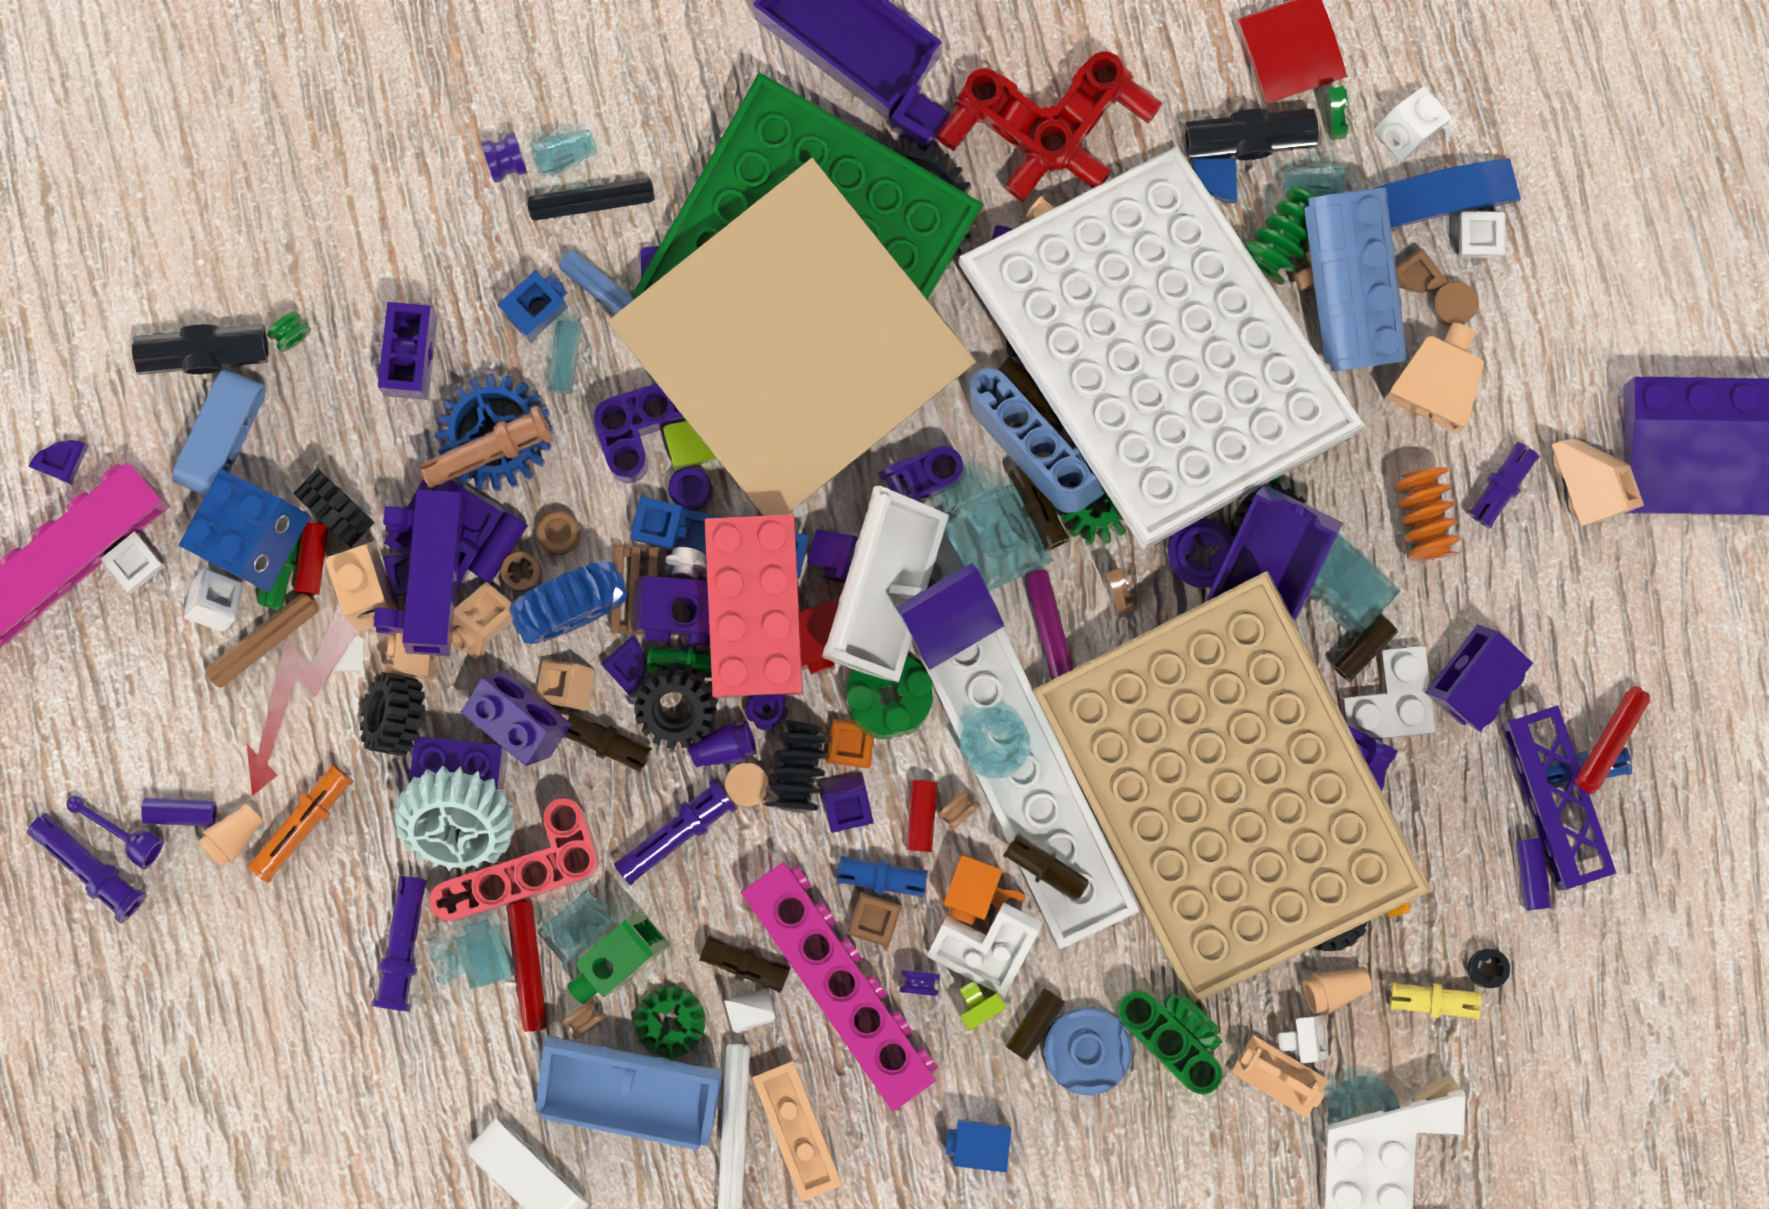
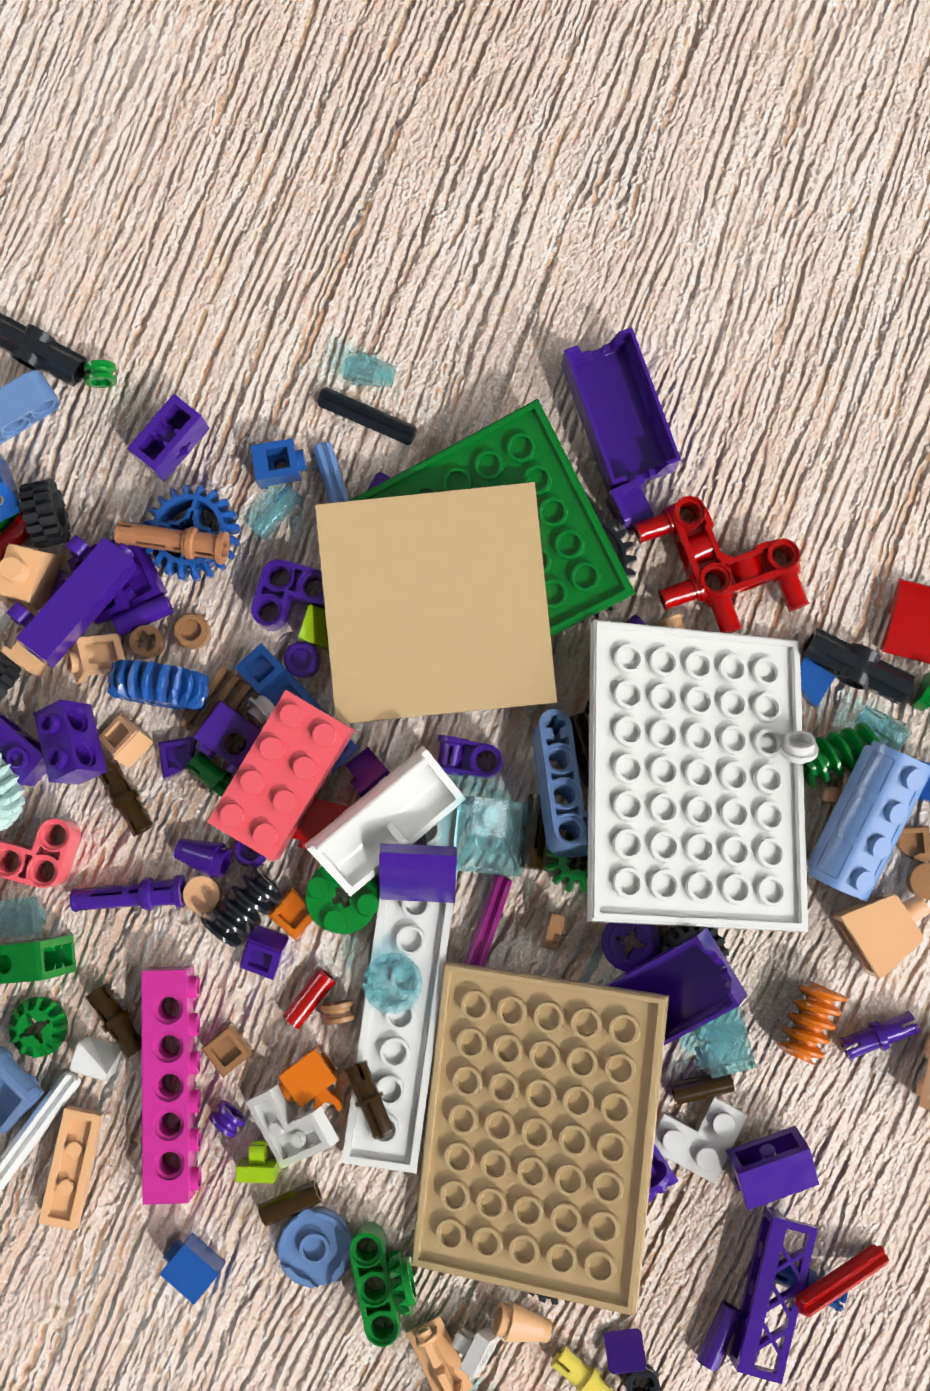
camera: 30 degrees right, 0 degrees up
(504, 157) = (325, 349): dark purple wheel -> none
(672, 729) = (169, 810): black tyre -> none
(882, 876) = (252, 1024): blue pin -> none
(1242, 252) = (799, 747): none -> white plate
(1452, 948) = (625, 1351): none -> dark purple piece

